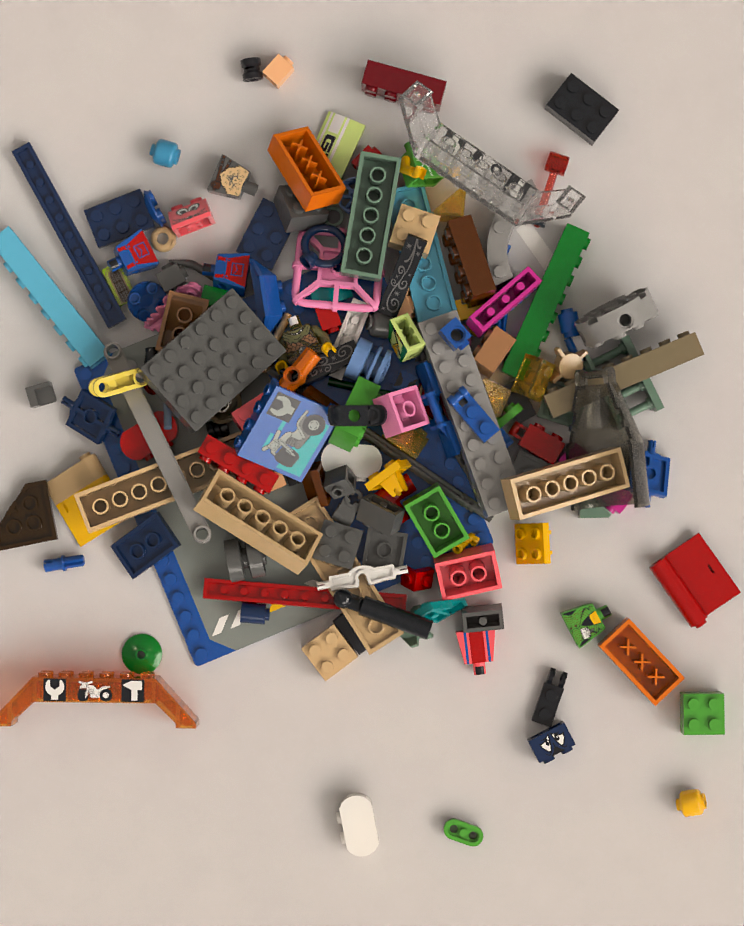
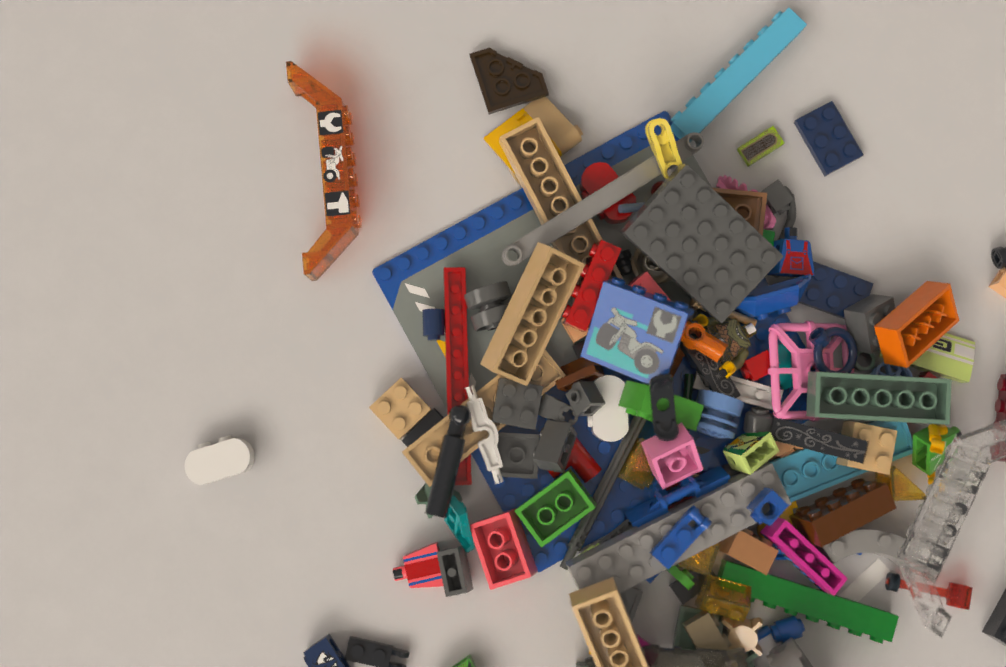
camera: 80 degrees right, 5 degrees down
(41, 394) = (635, 79): dark grey panel -> none
(63, 563) = (464, 122): blue axle -> none
(69, 235) = (803, 89): dark blue plate -> none
(91, 416) = (620, 131): dark blue plate -> none
(133, 255) = (794, 155): torso -> none
(144, 299) = (749, 170): blue dish -> none
(145, 545) = (492, 202): dark blue plate -> none
(149, 646) = (380, 223): green dish -> none
(150, 203) = (846, 170): blue dish -> none
(165, 153) = (905, 176): dark azure head -> none
(171, 241) = (807, 191): tan piece -> none
(190, 217) = (841, 210): coral slope -> none
(231, 180) = (887, 247): torso -> none
(390, 478) = (596, 452): yellow plate -> none
(417, 579) = (489, 494): red bracket -> none
(462, 833) = (221, 574): bright green plate -> none
(473, 540) = (537, 550): yellow arm -> none
(532, 543) = (542, 617): yellow plate -> none
(538, 441) = (653, 610): red brick -> none

